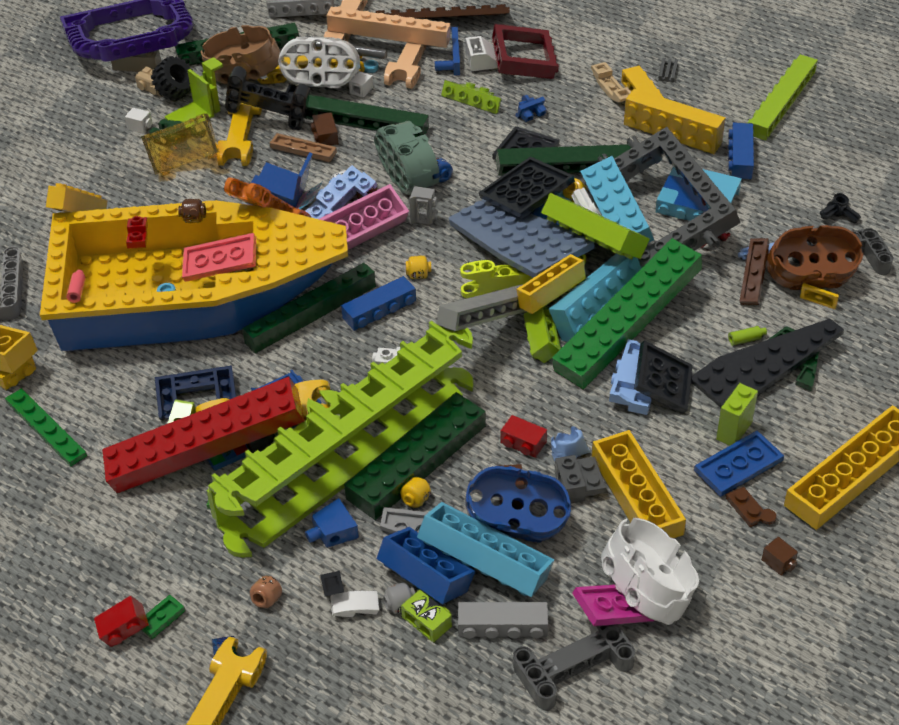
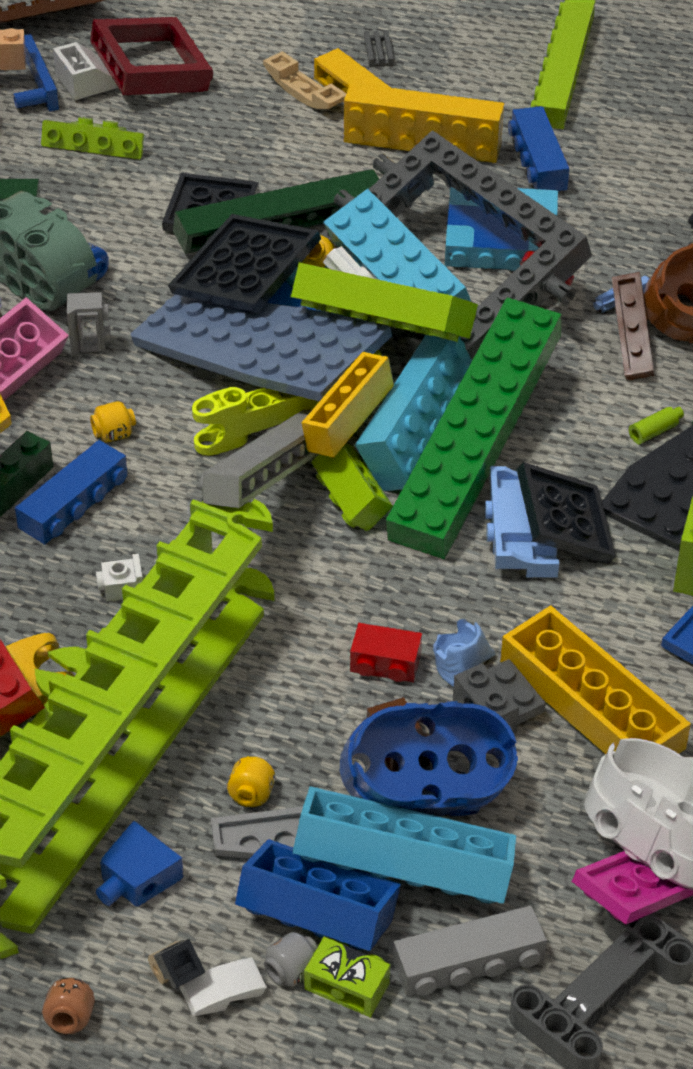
camera: 20 degrees left, 0 degrees up
(415, 454) = (226, 723): dark green brick -> none
(529, 106) = (190, 137): blue hips -> none

